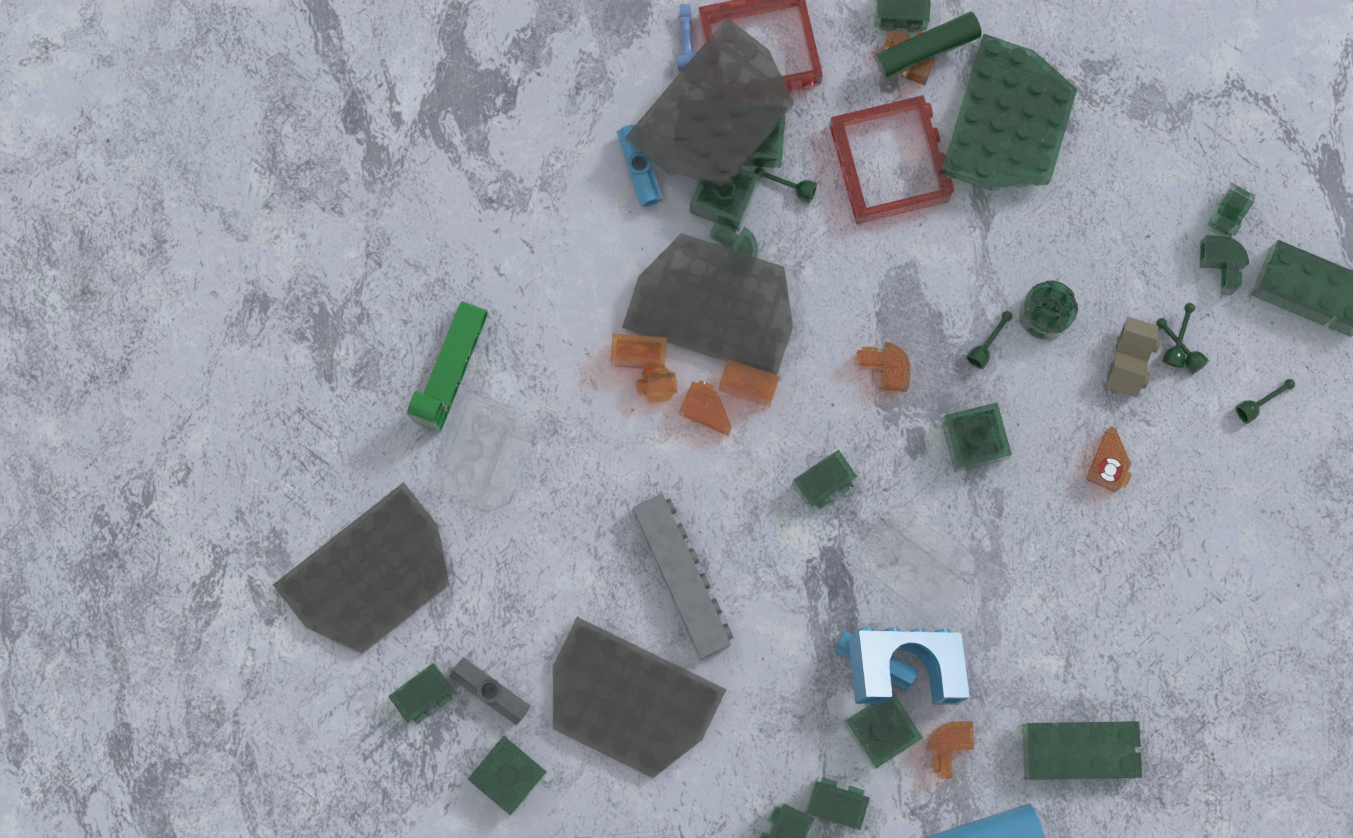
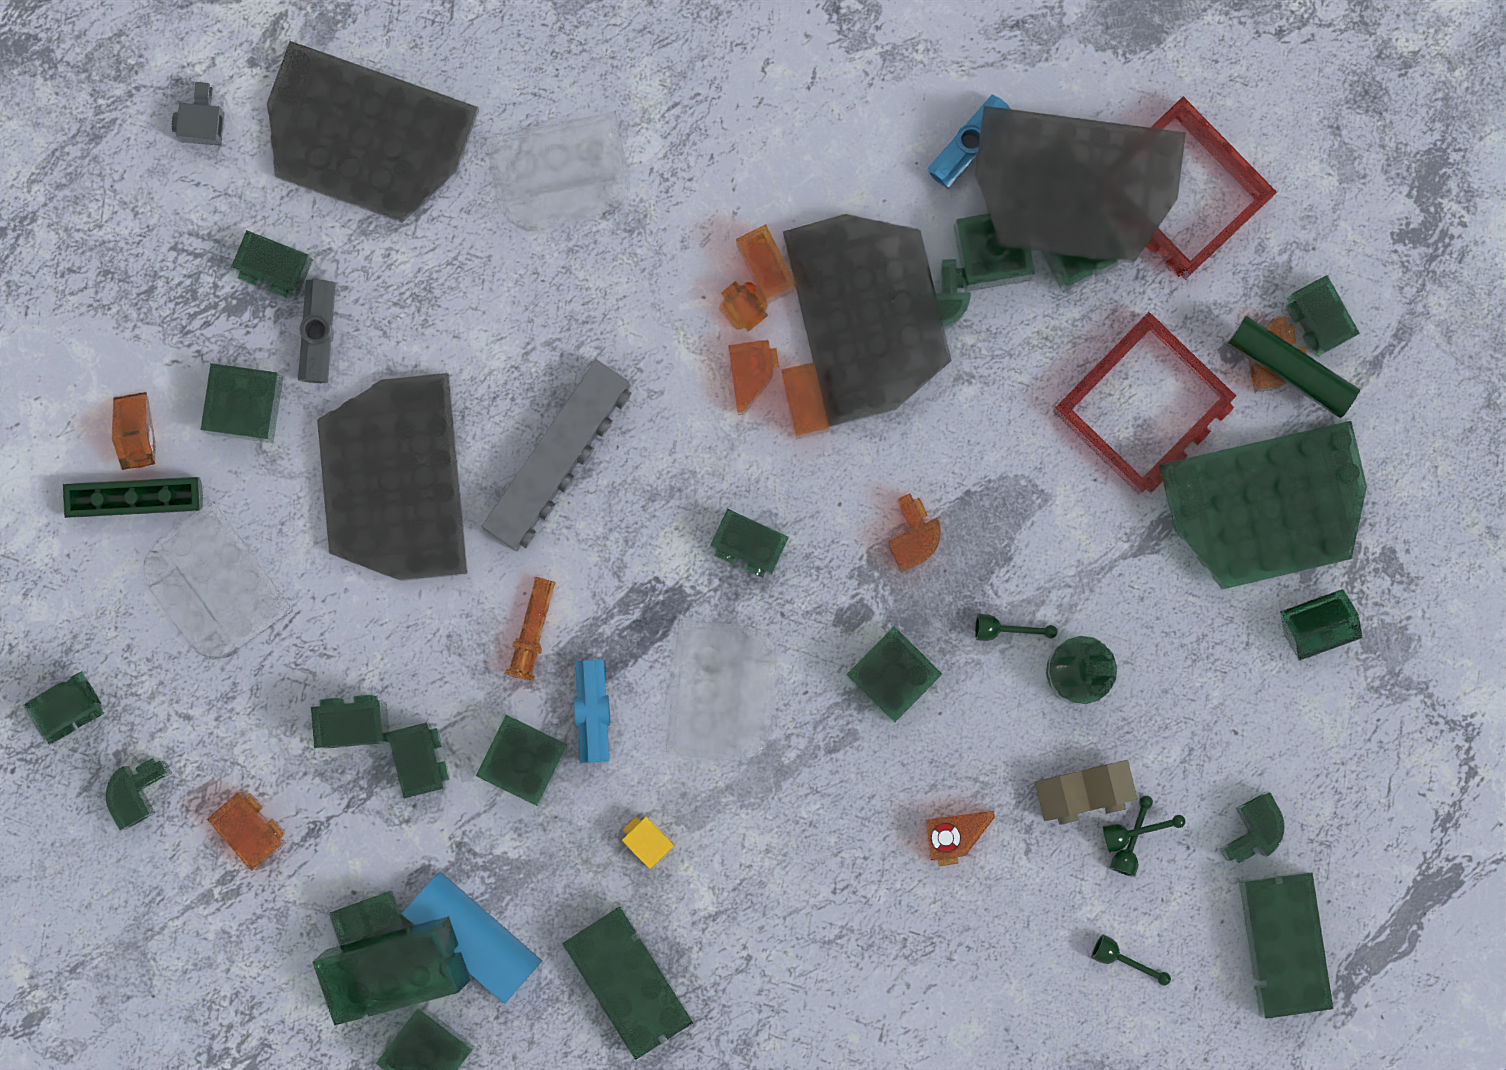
camera: 60 degrees right, 5 degrees up
(288, 683) = (199, 121): none -> dark grey brick
(433, 406) = (625, 79): green beam -> none
(686, 28) = (1165, 91): medium blue brick -> none
(802, 677) = (528, 645): none -> clear orange pin
(804, 189) = (1054, 332): dark green hinge -> none
(938, 650) = (640, 771): arch -> none
(948, 738) = (556, 834): clear orange brick -> none
(990, 677) = (646, 841): none -> yellow brick
(1111, 134) = (1321, 624): none -> clear green brick
(1231, 210) = (1317, 804): clear green brick -> none

